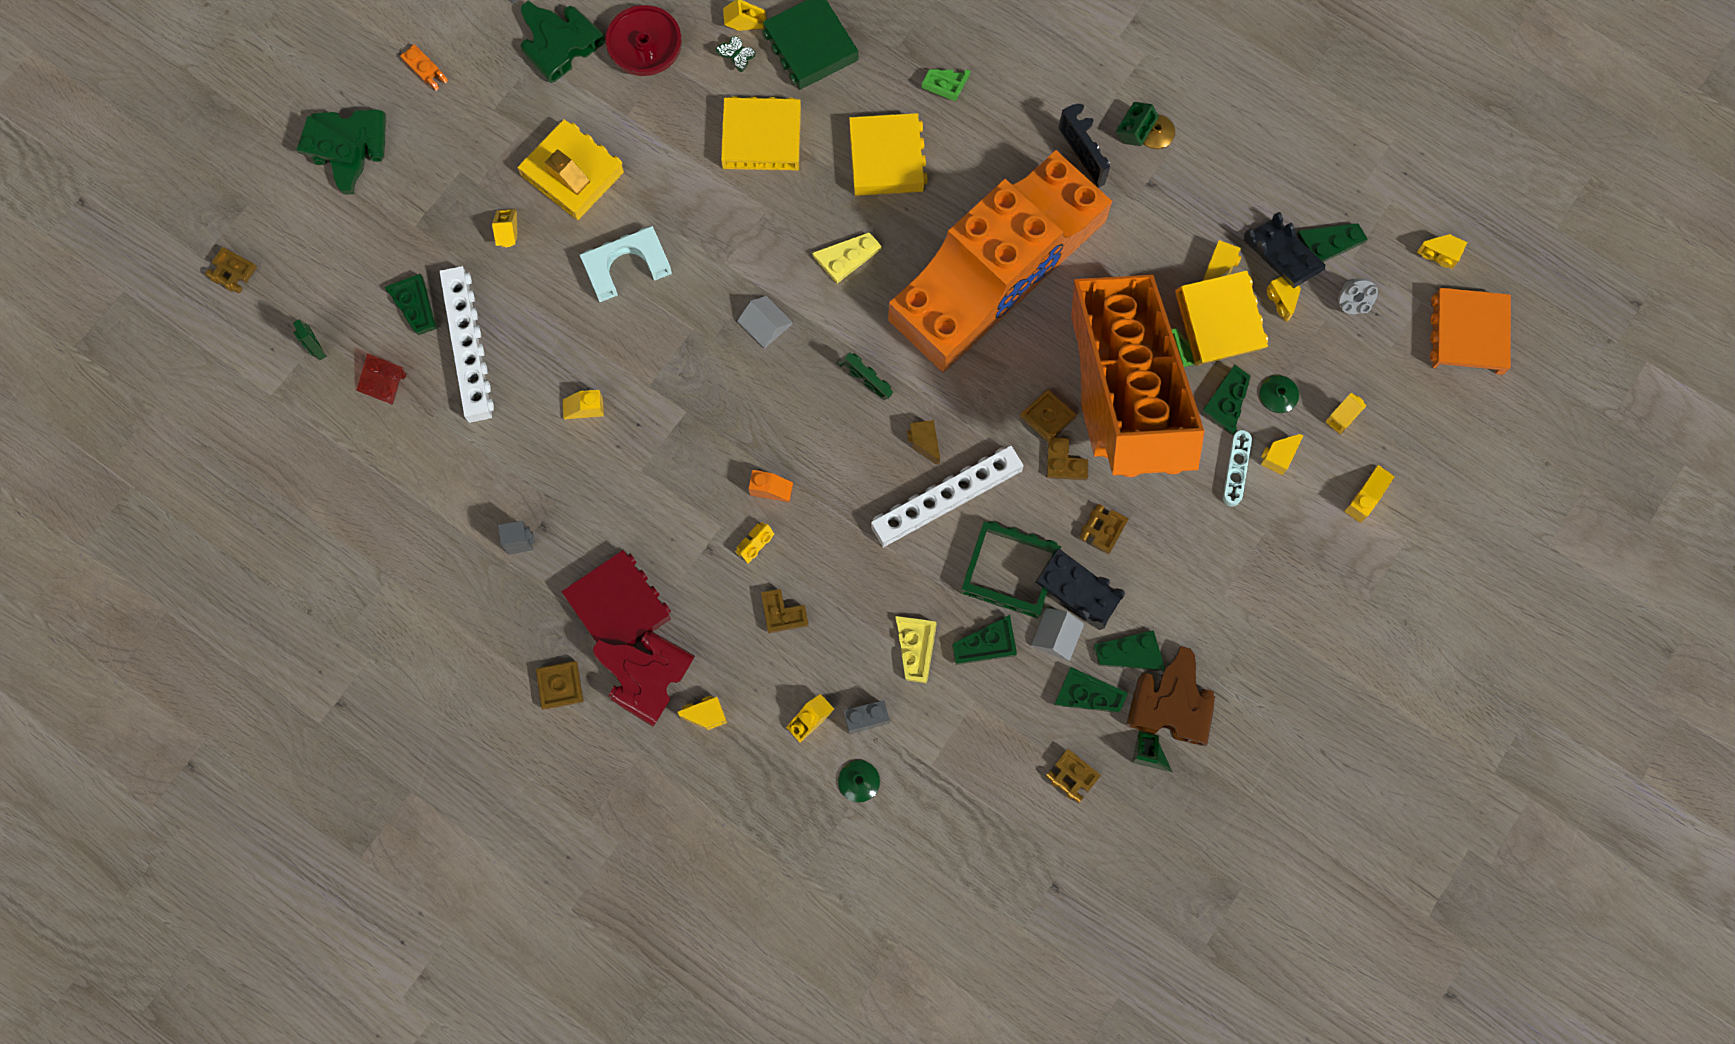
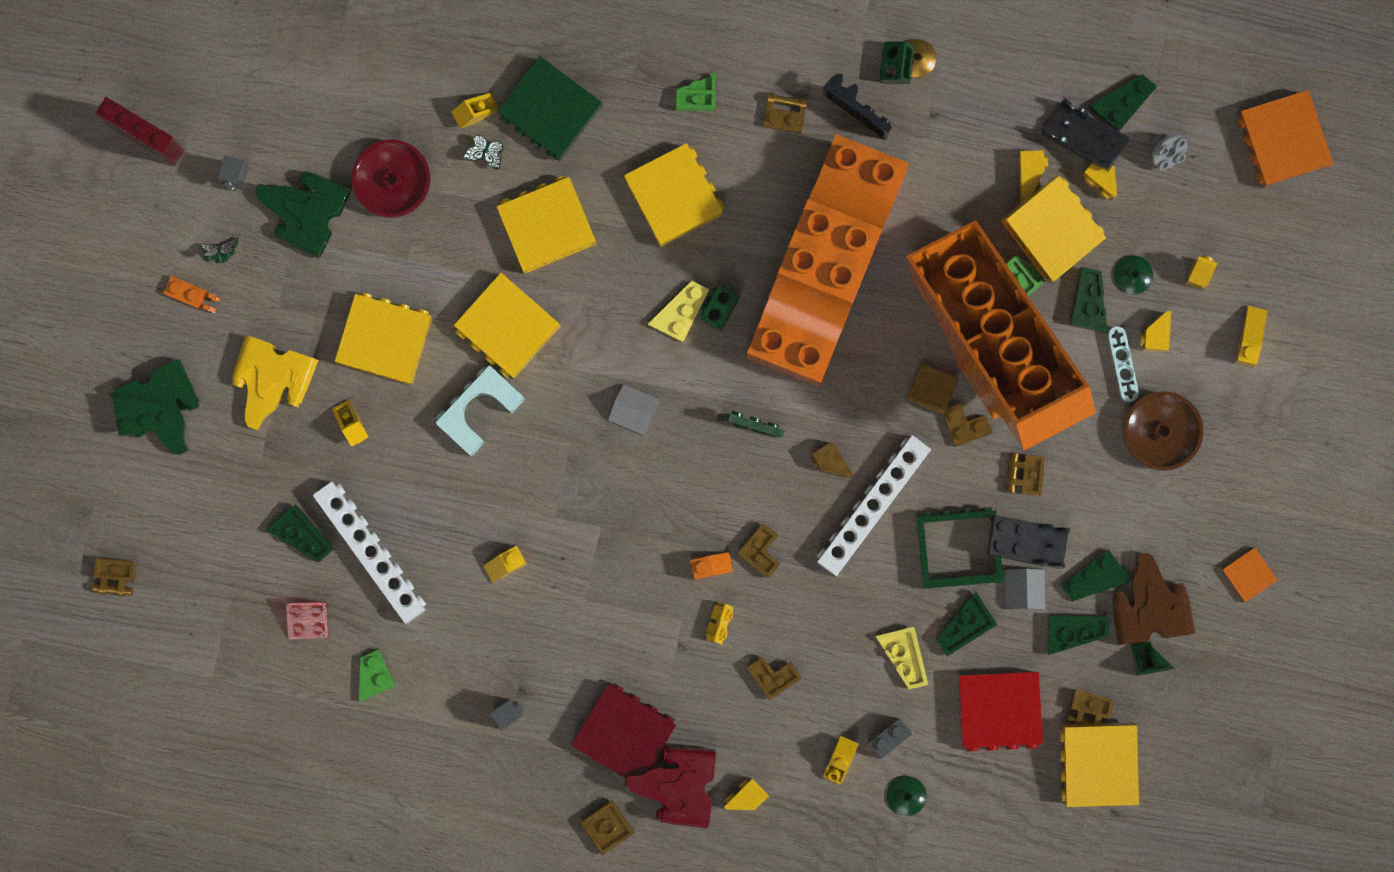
camera: 20 degrees left, 10 degrees up
(308, 339) = (225, 614): dark green wing -> none
(415, 454) = (373, 676): none -> bright green wing
(455, 159) = (269, 377): none -> yellow rock
(465, 43) = (219, 253): none -> dark green animal
(566, 172) = (386, 349): pearl gold slope -> none
(685, 203) = (506, 326): none -> yellow brick
(817, 493) = (755, 551): none -> pearl gold plate
(887, 268) = (723, 309): none -> dark green brick
(985, 737) = (1000, 711): none -> red brick
(1014, 133) = (785, 119): none -> pearl gold plate
(1060, 831) = (1099, 764): none -> yellow brick
(1251, 541) = (1163, 431): none -> reddish brown dish
(1282, 713) = (1249, 575): none -> orange tile
(1443, 250) = (1232, 67): yellow slope -> none

